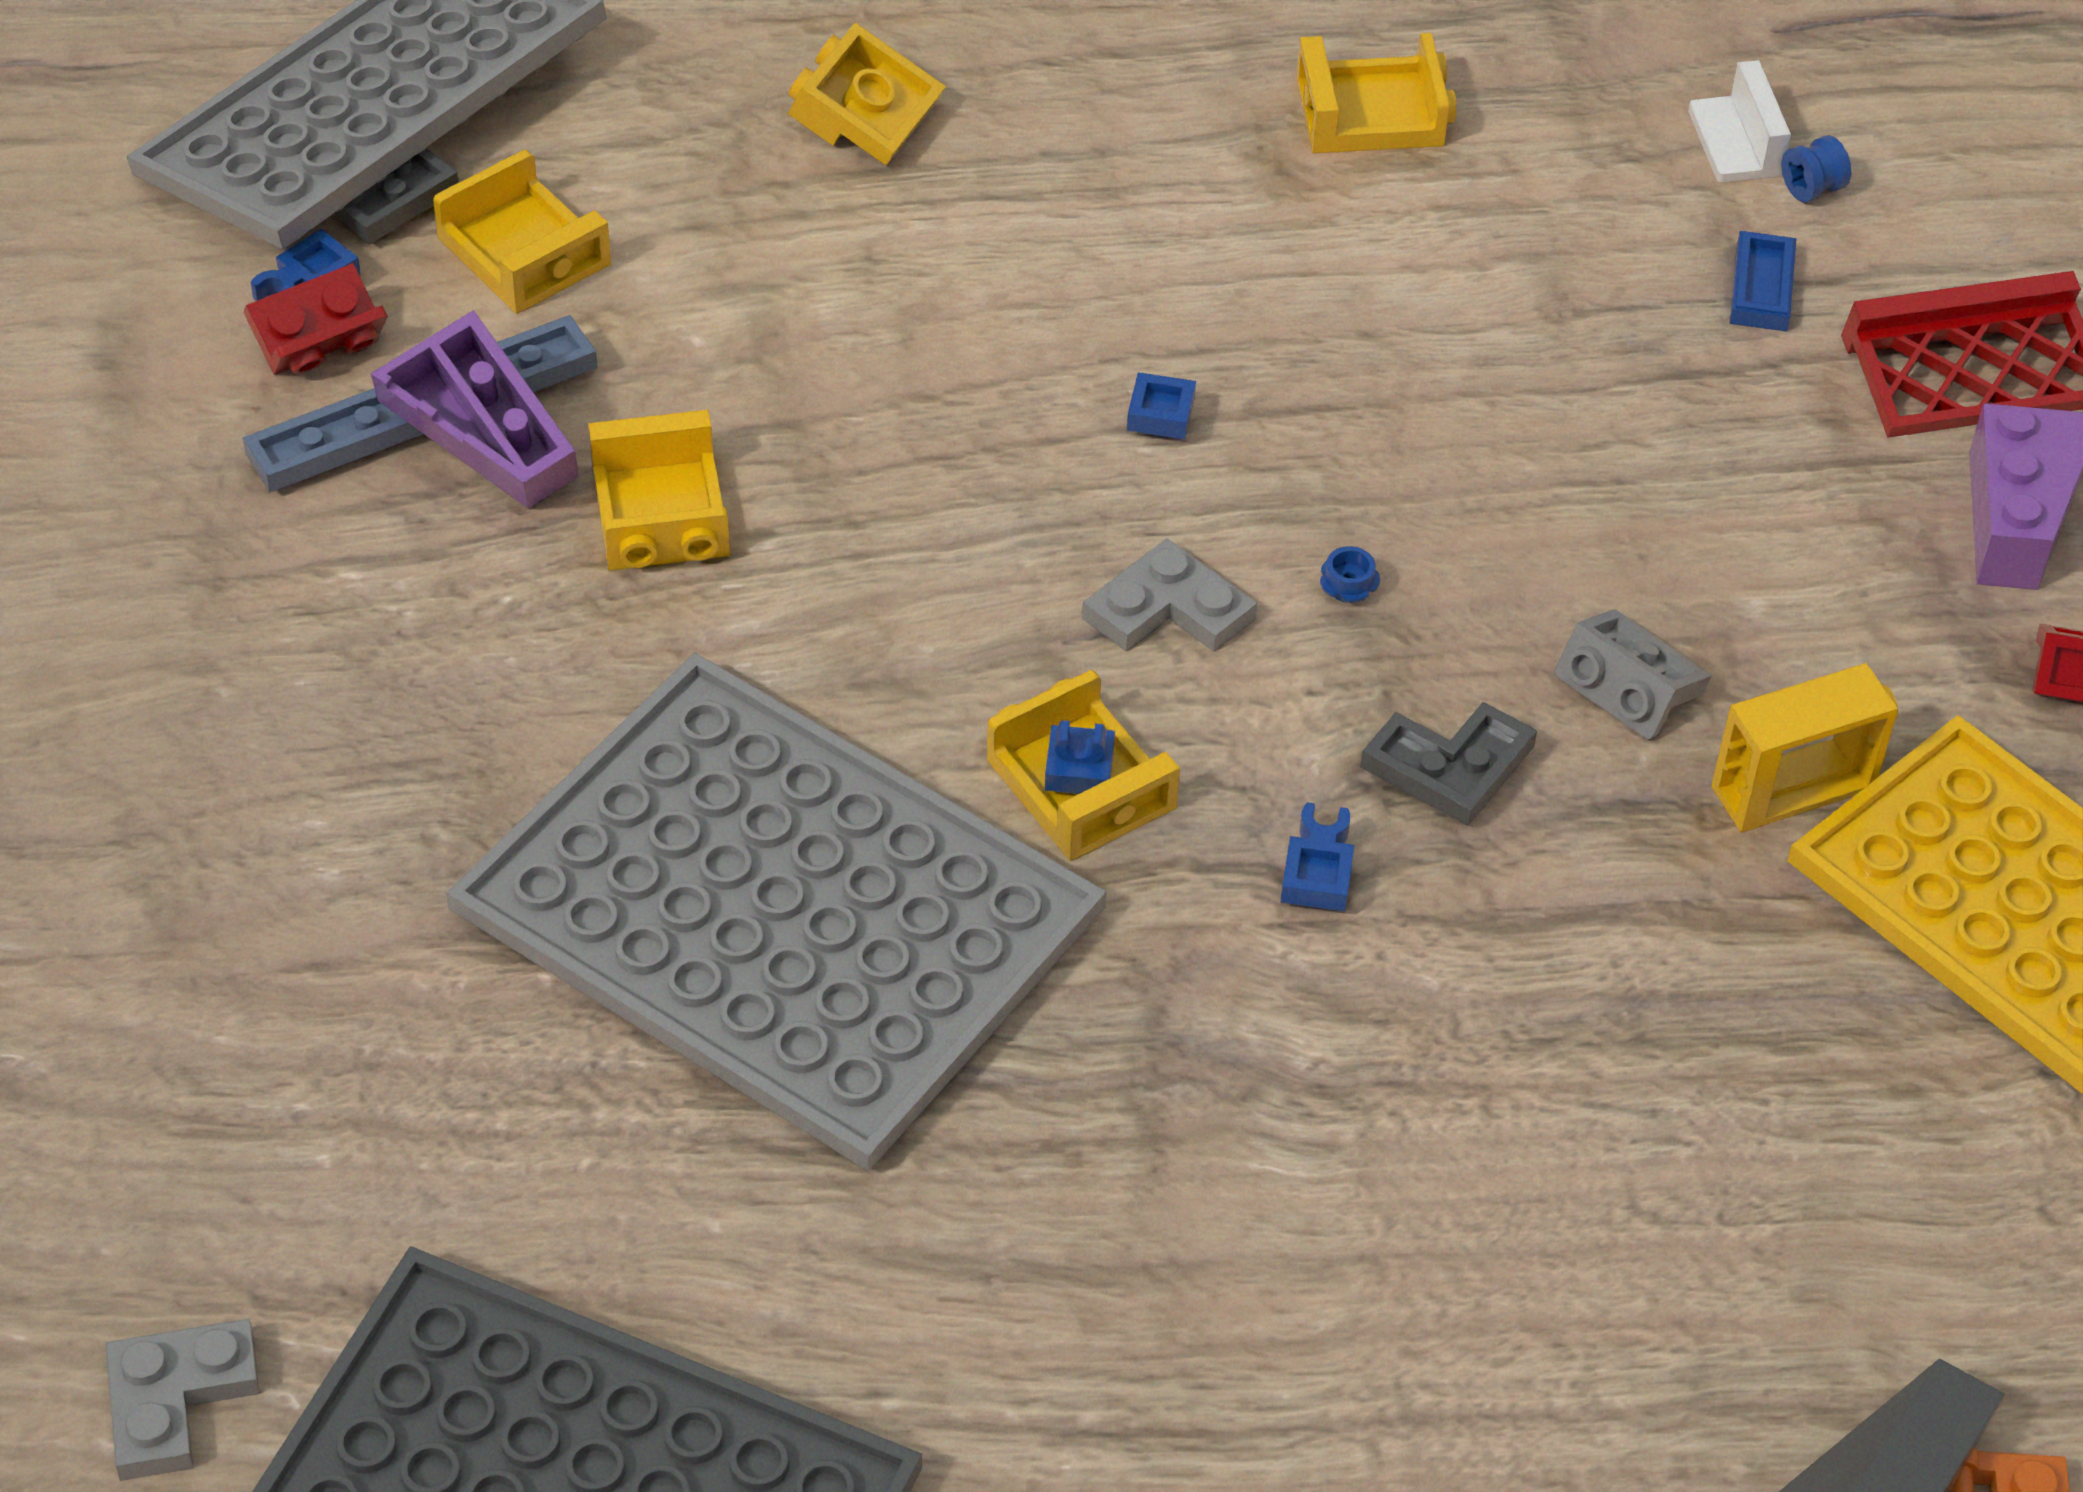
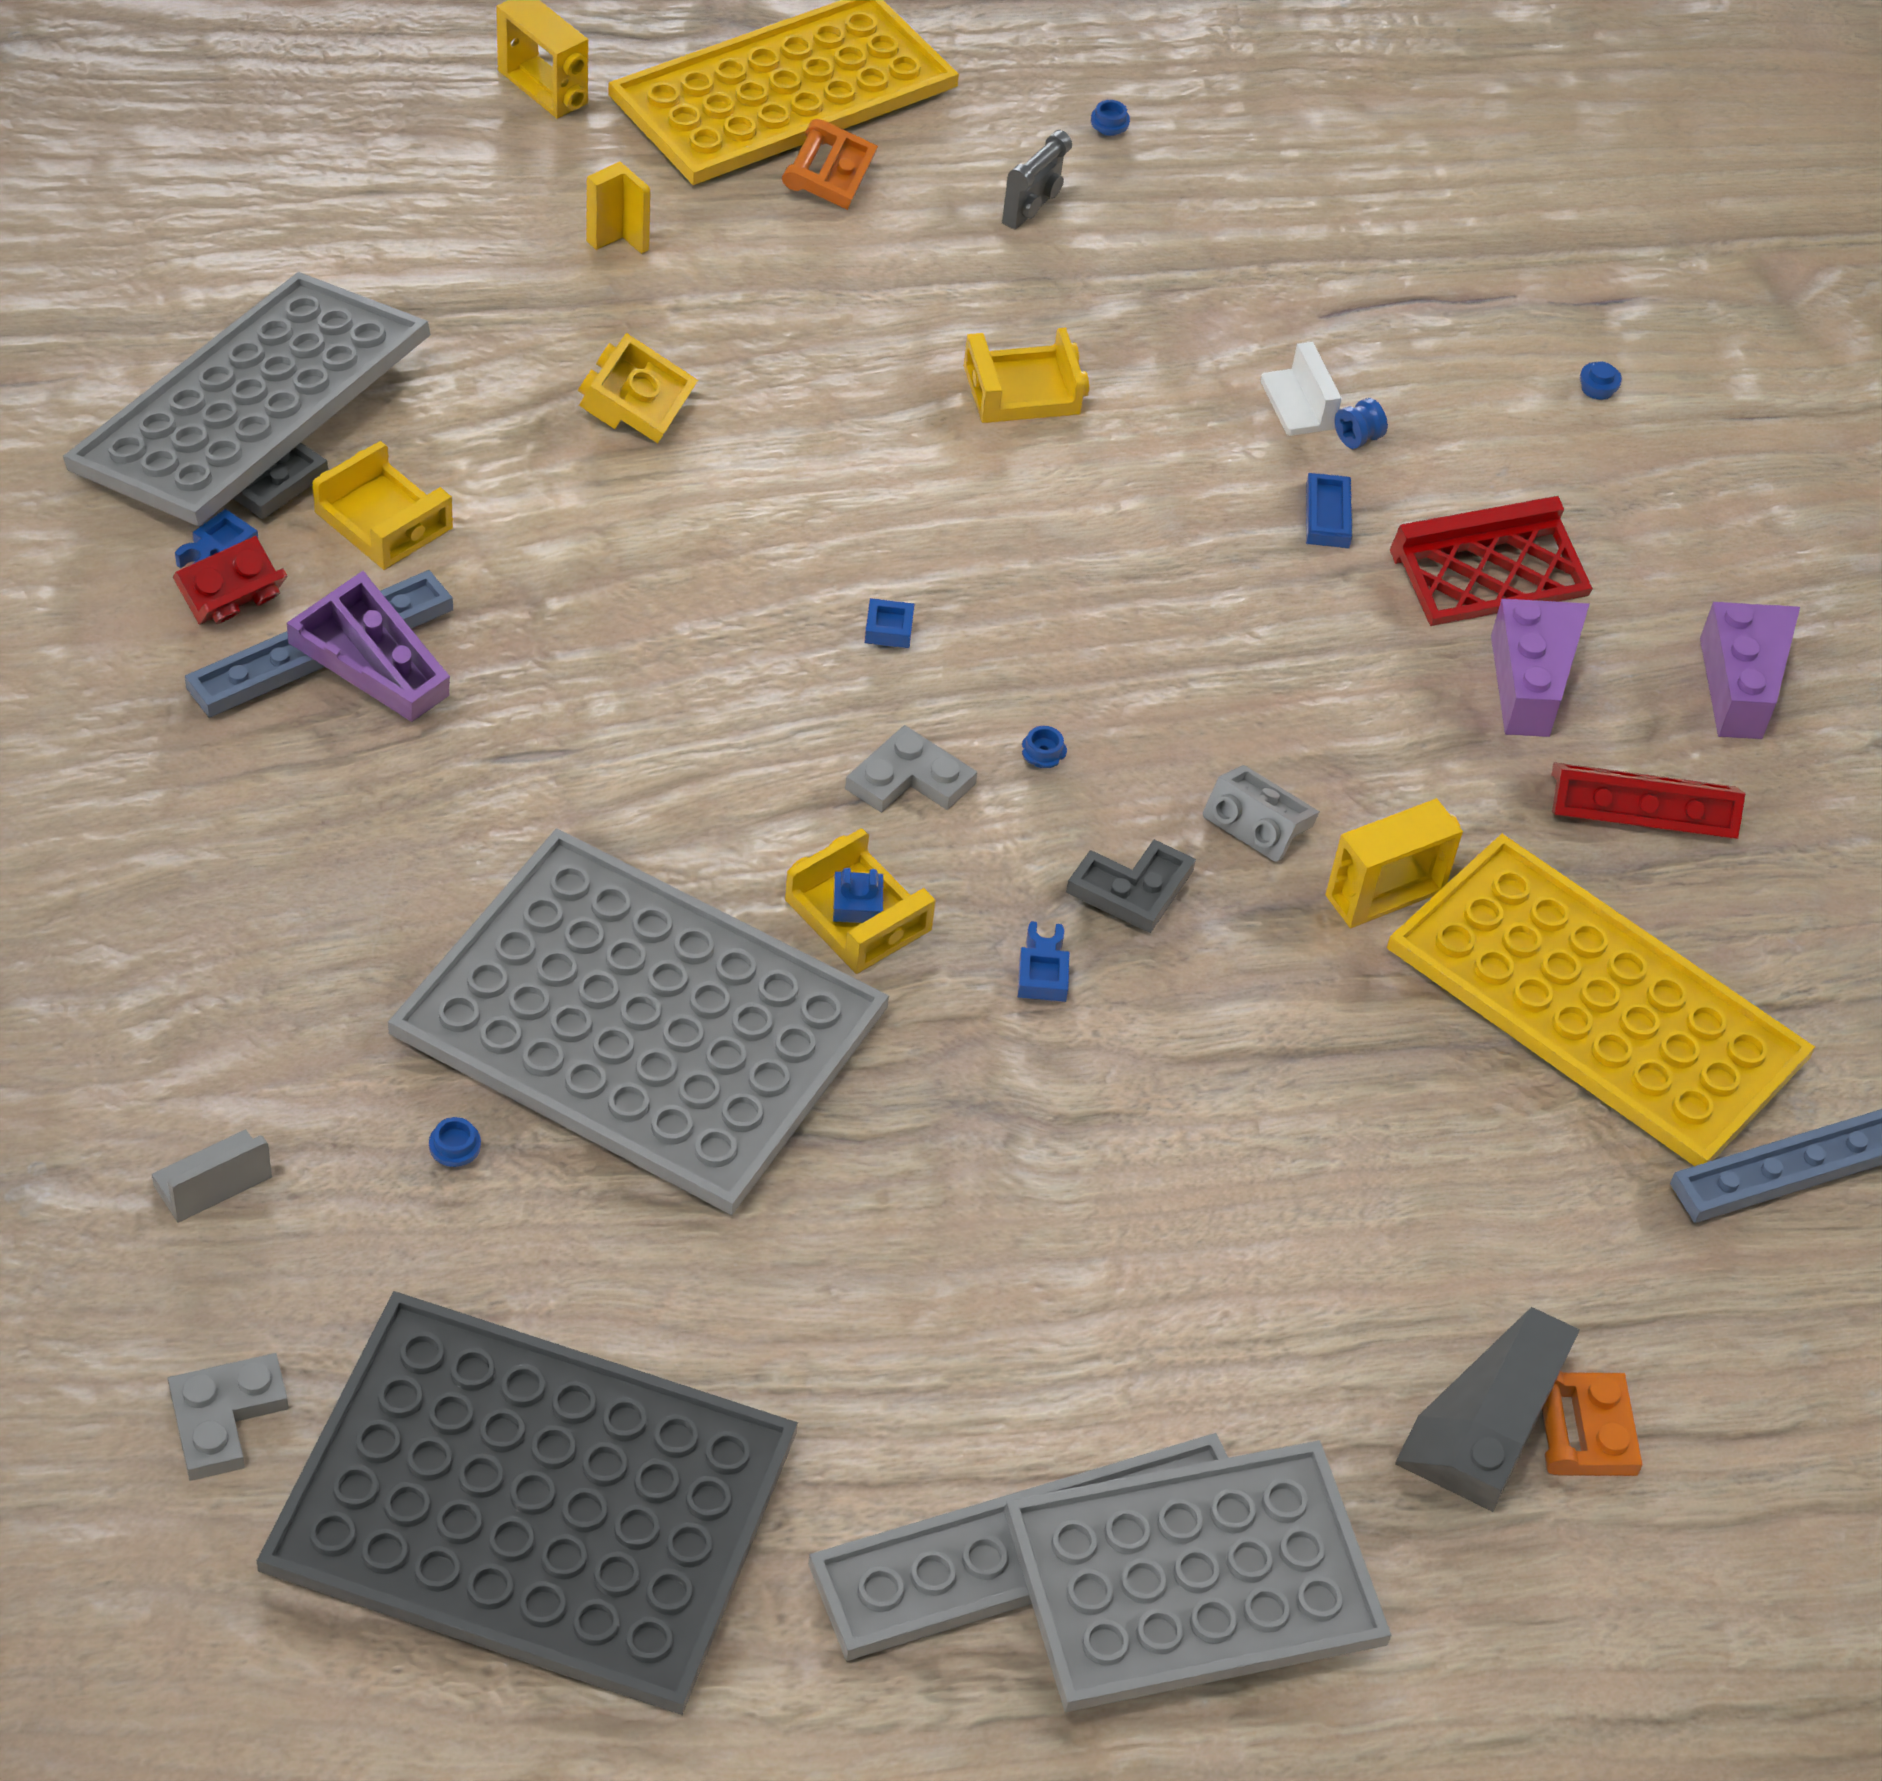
camera: 10 degrees left, 0 degrees up
(199, 1080) = (213, 1174): none -> light grey panel
(515, 1055) = (454, 1142): none -> blue plate
(658, 490) = (512, 704): yellow panel -> none

